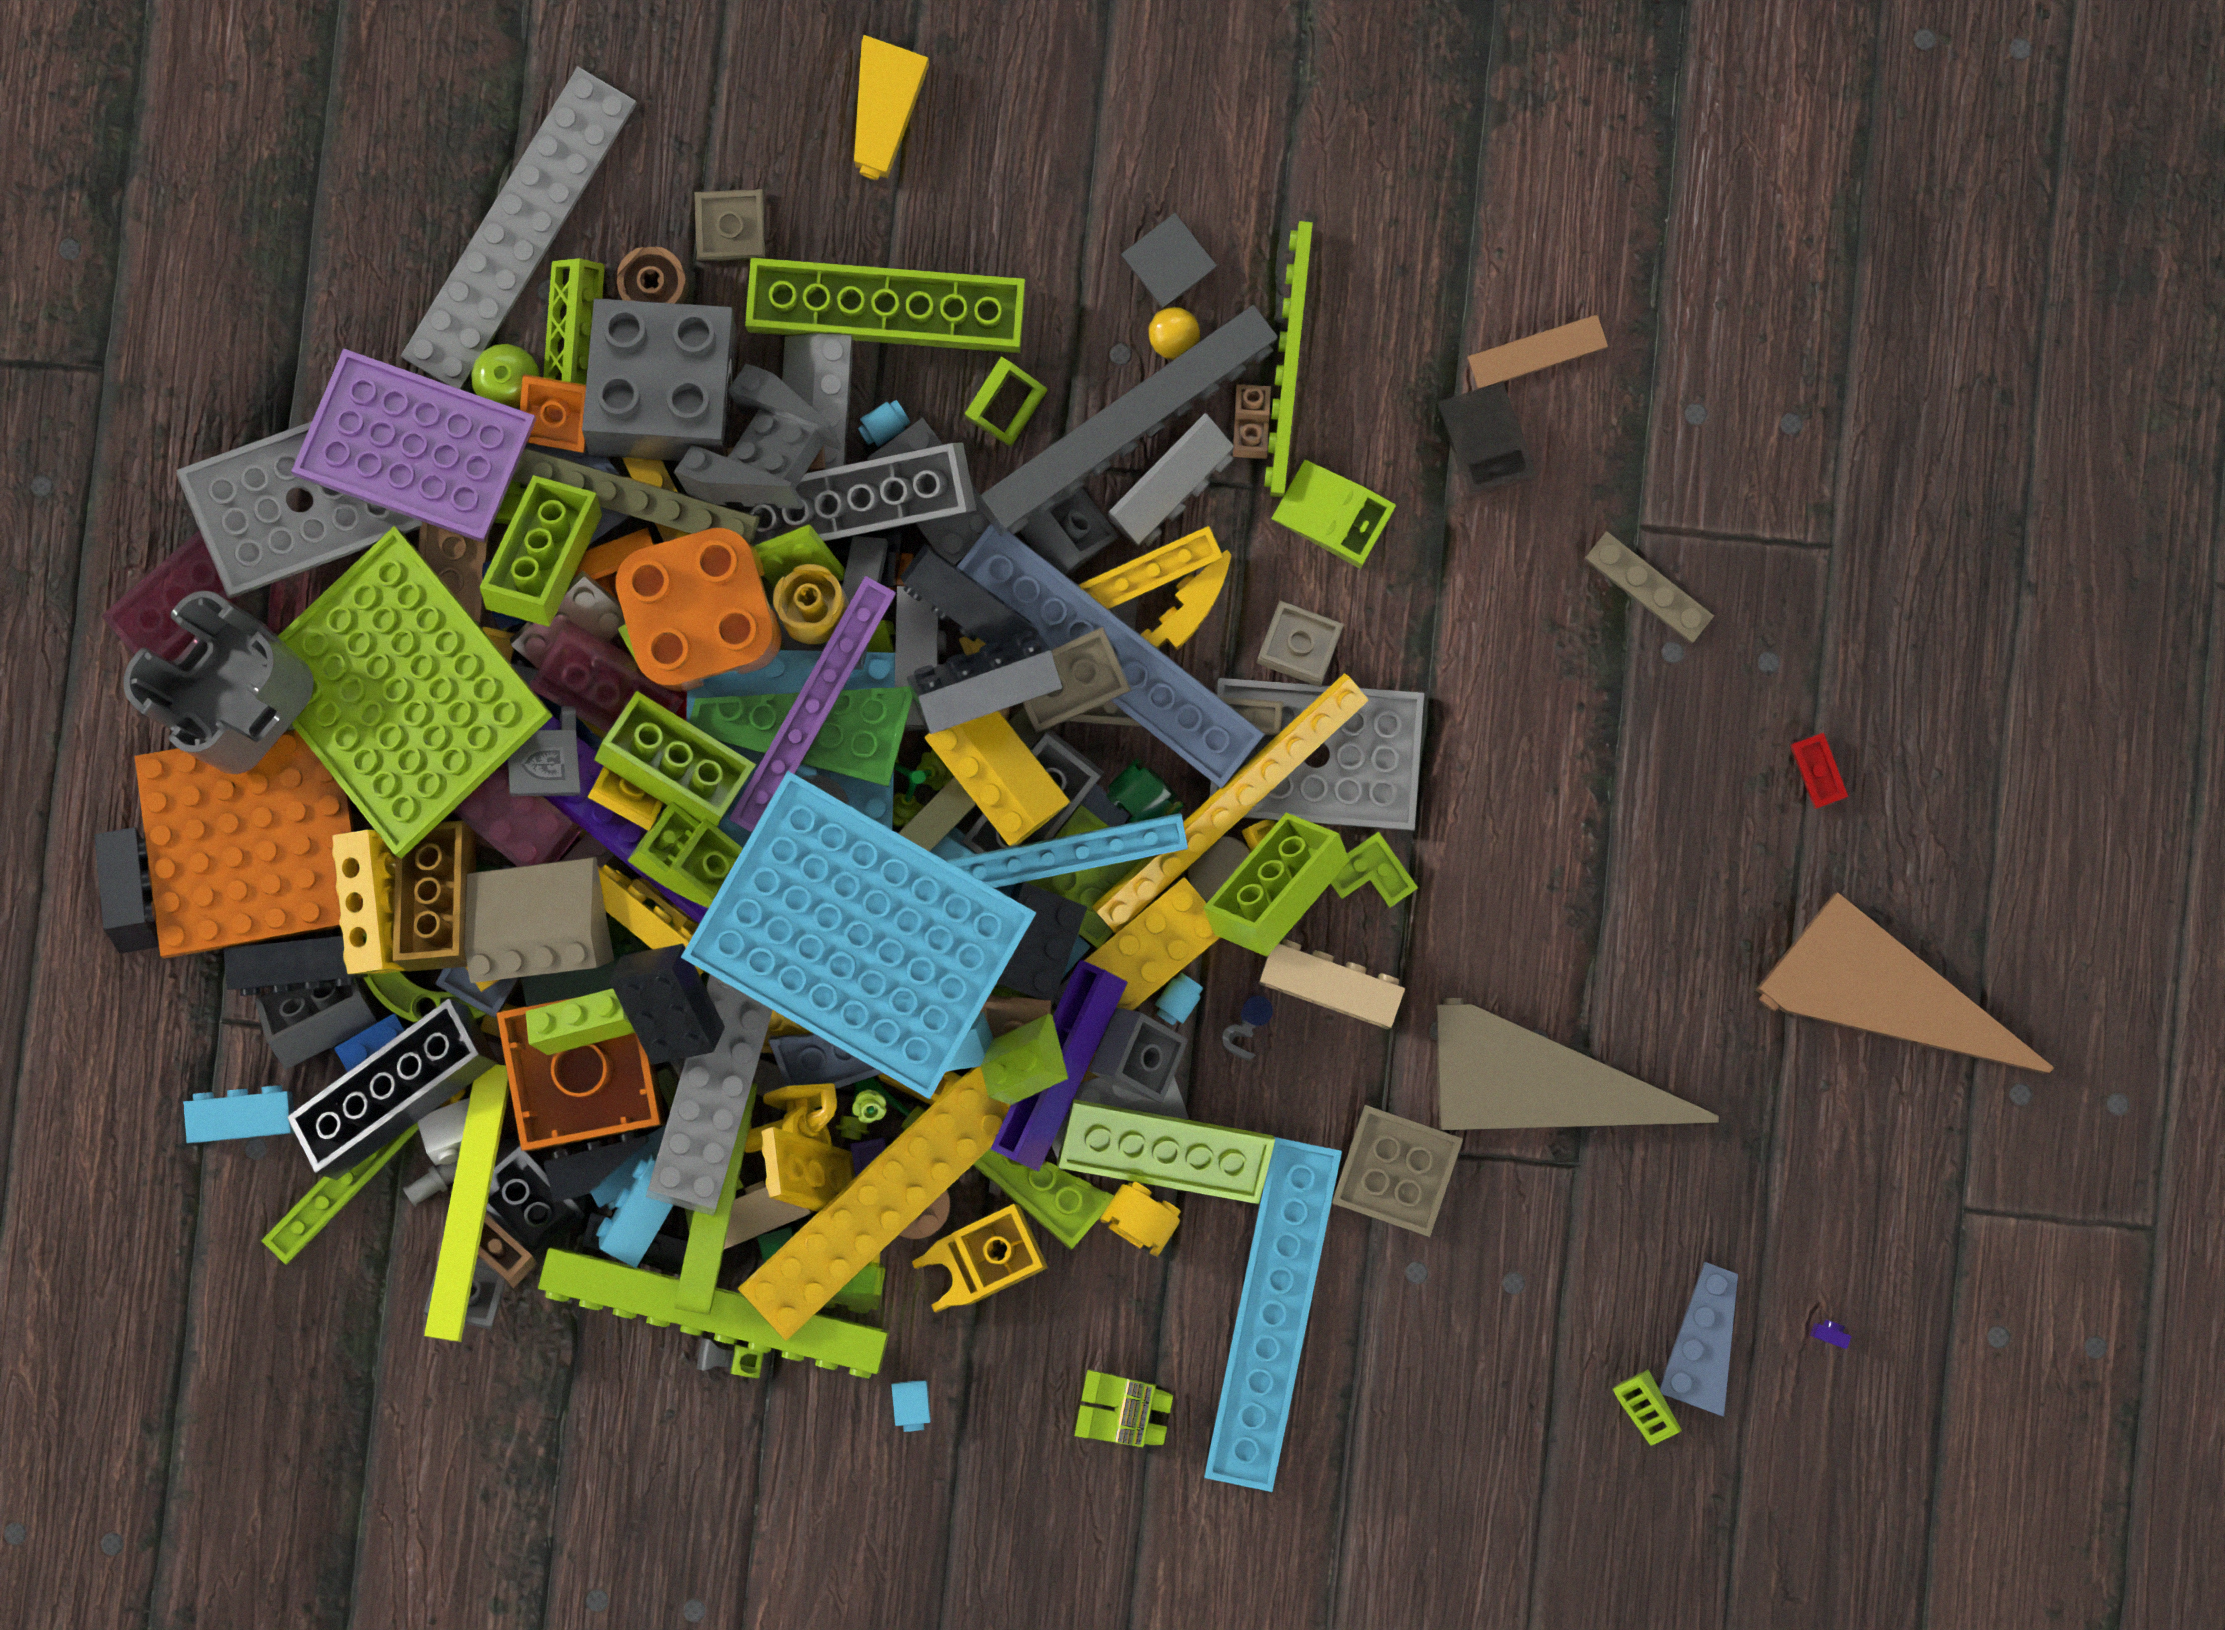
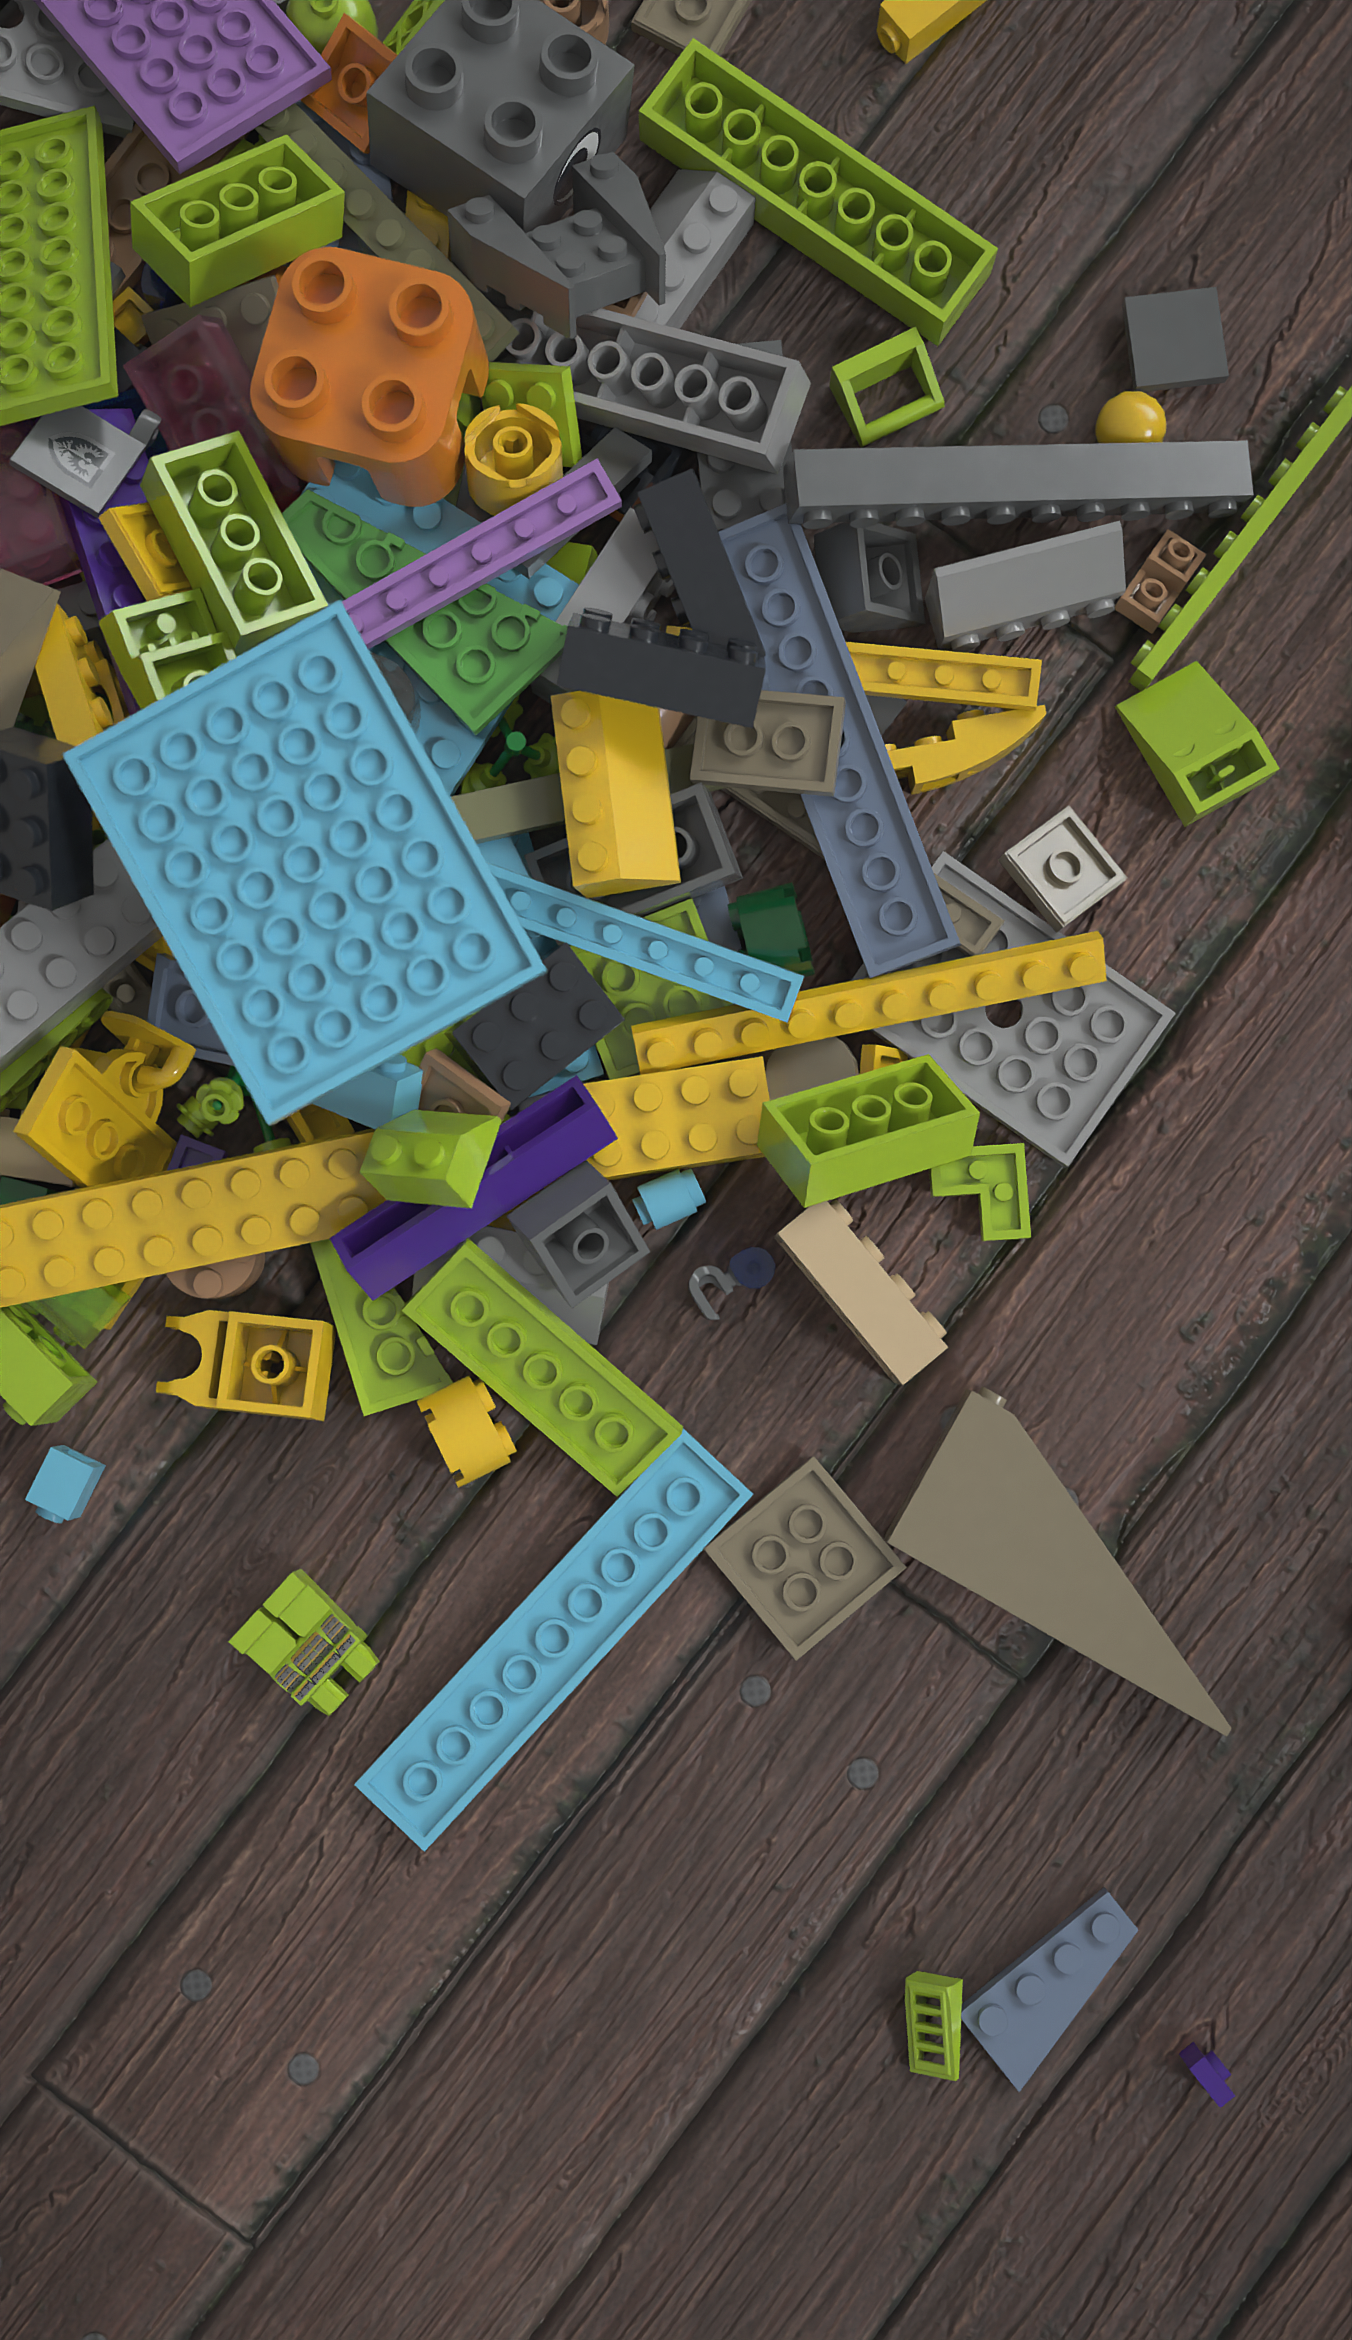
camera: 30 degrees right, 0 degrees up
(883, 423) = (732, 324): medium azure brick -> none

